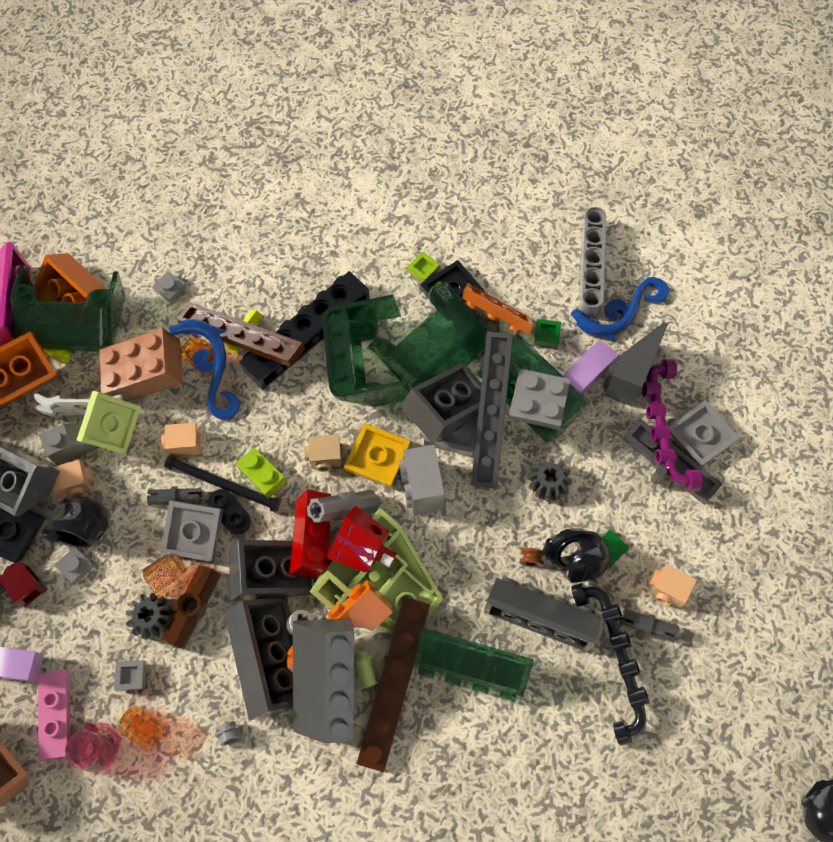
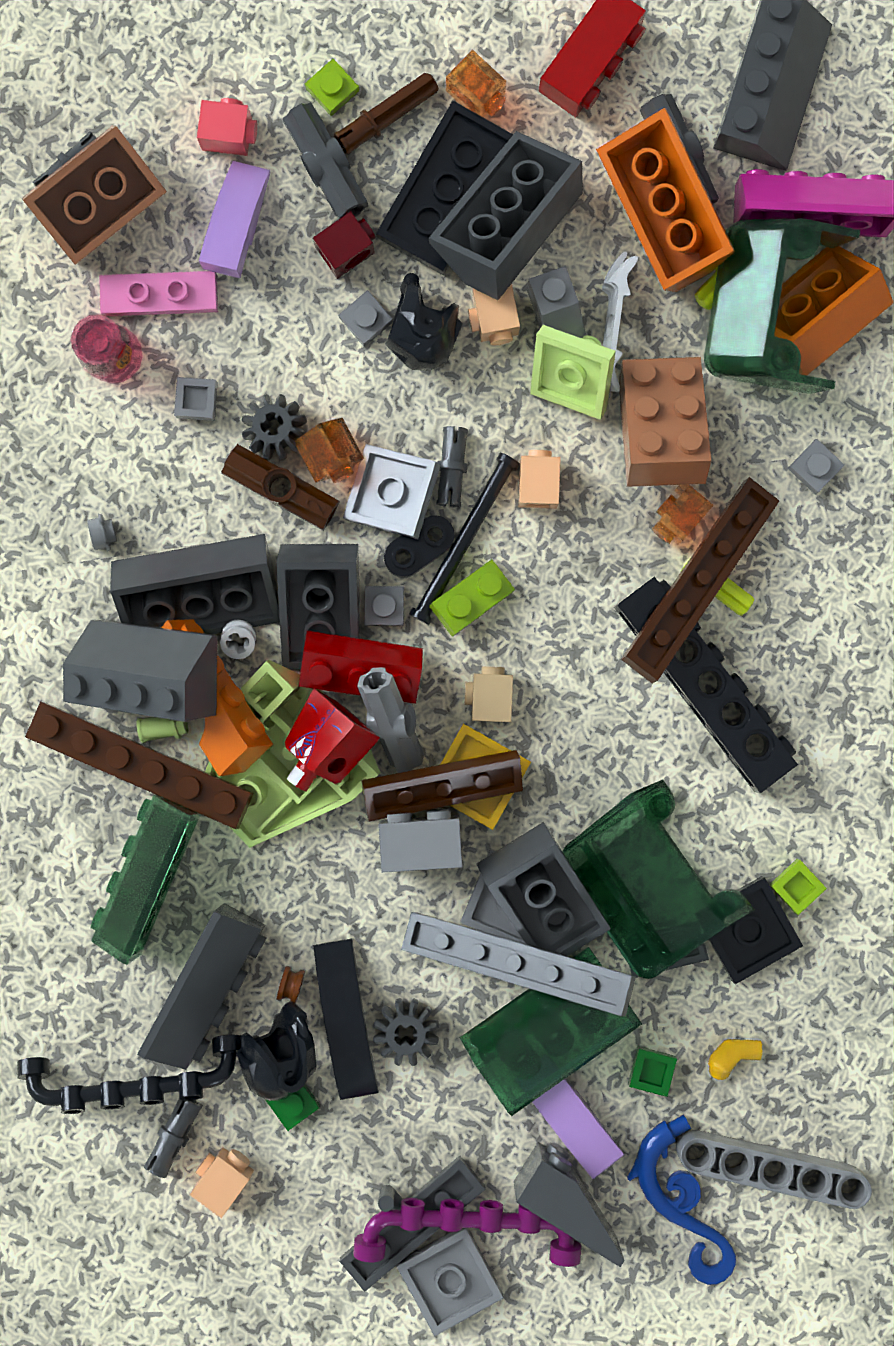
camera: 100 degrees right, 20 degrees up
(141, 727) = (123, 414): clear orange brick -> none
(196, 327) = (651, 542): blue plant -> none
(270, 527) = (384, 606): none -> light grey plate
(343, 332) = (640, 743): clear green windscreen -> none
(384, 470) = (442, 785): none -> reddish brown plate
(497, 309) = (692, 997): orange plate -> none
(530, 293) = (730, 1053): none -> yellow arm
(539, 399) = (520, 1039): light grey plate -> none
(547, 519) = (345, 1019): none -> black slope

